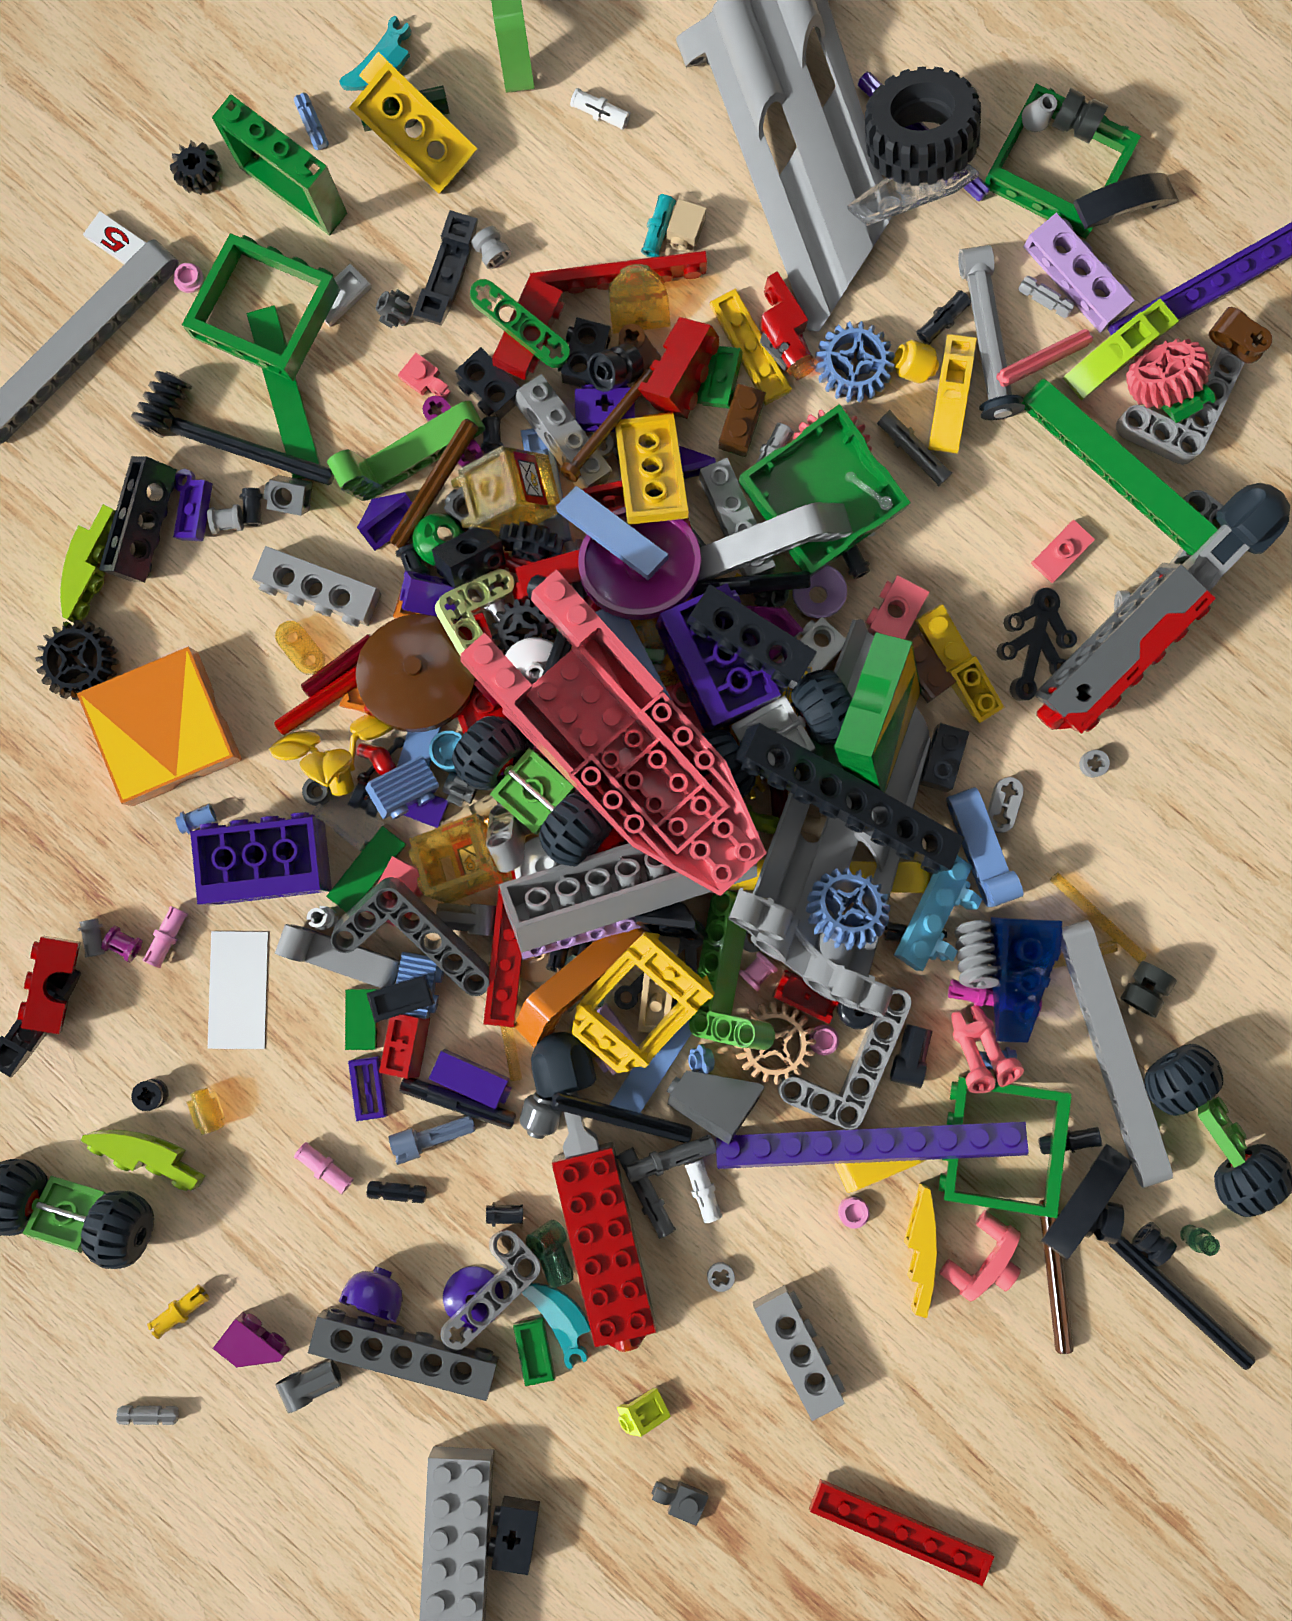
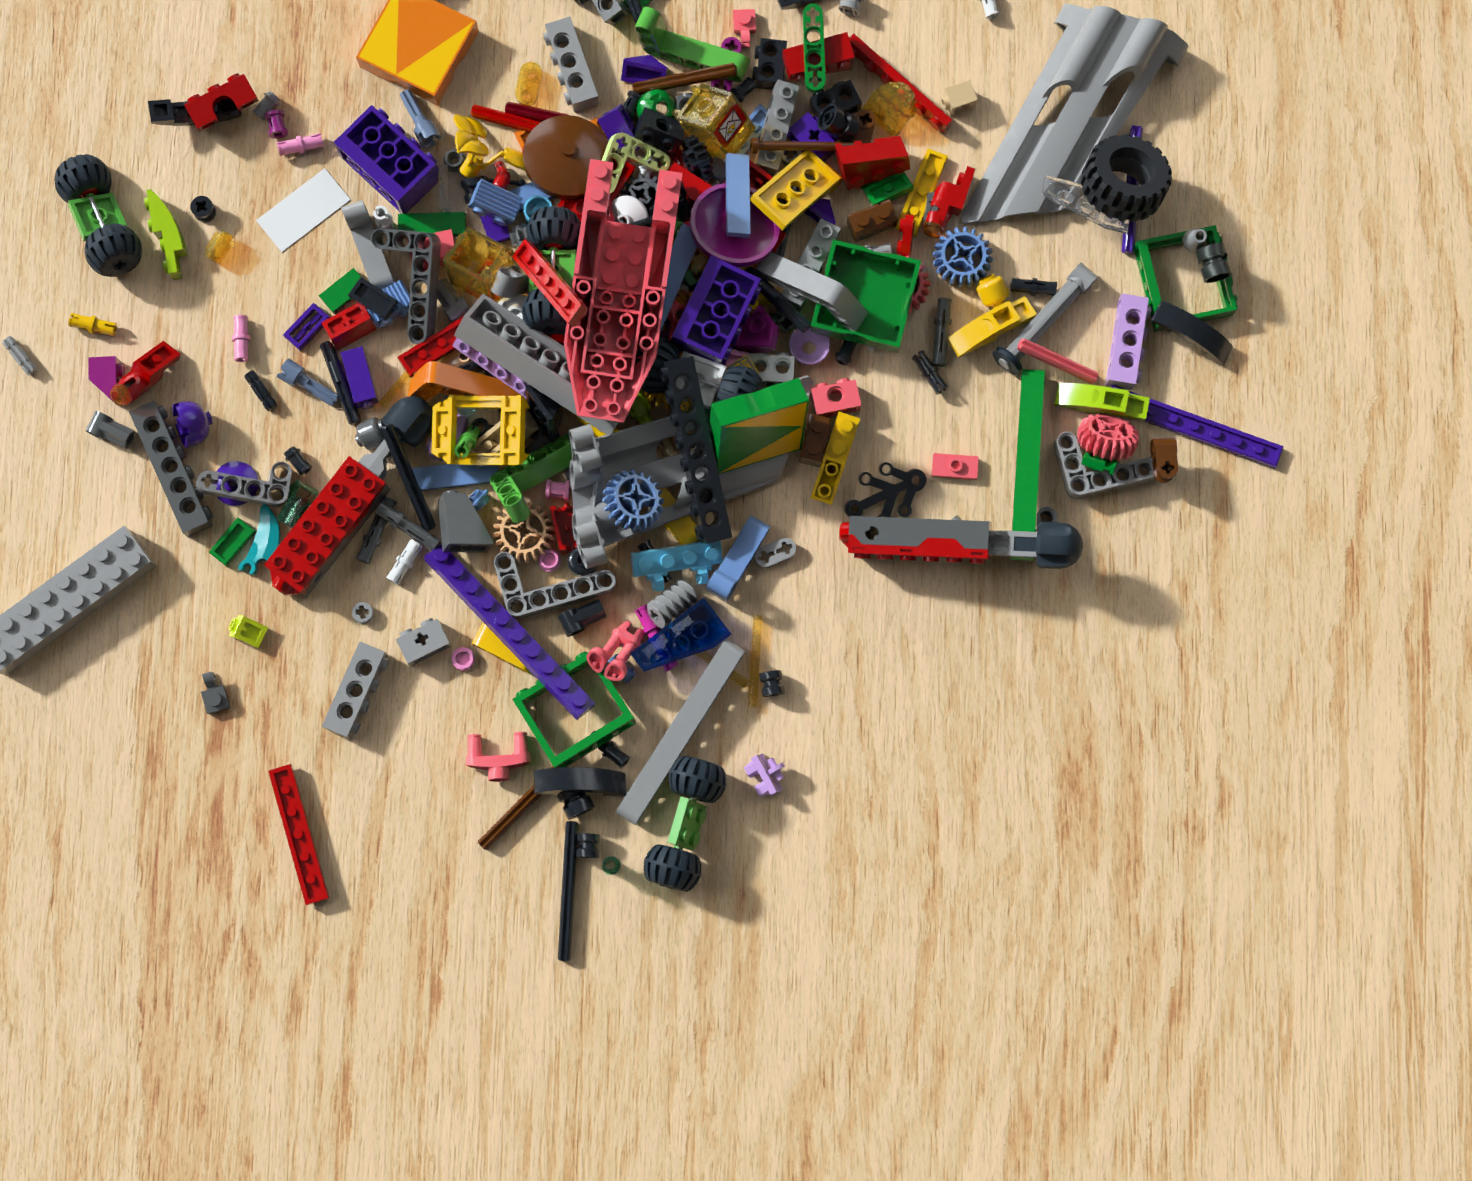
camera: 40 degrees right, 5 degrees down
(193, 819) = (385, 106): medium blue pin -> none
(259, 795) = (424, 129): none -> sand blue piece
(279, 1303) = (144, 374): none -> red plate
(510, 1553) = (130, 613): black brick -> none
(556, 807) = (550, 282): none -> plate
(637, 1026) = (467, 441): none -> bright green pin
(658, 225) = (933, 88): teal pin -> none
(769, 637) = (738, 278): black brick -> none
(781, 390) = (907, 227): none -> red plate
(809, 1257) = (436, 641): none -> light grey brick
(885, 502) = (886, 333): clear hinge -> none
(922, 1238) = (480, 708): yellow slope -> none
(944, 757) = (772, 493): black brick -> none
(946, 495) = (929, 372): none -> black pin
(1046, 296) = (1098, 335): light grey axle -> none
(1105, 763) = (844, 578): light grey bush -> none
(1140, 921) = (772, 684): none -> black wheel
(1141, 997) = (735, 720): pearl dark grey wheel -> none
(1228, 998) = (769, 773): none -> lavender hips

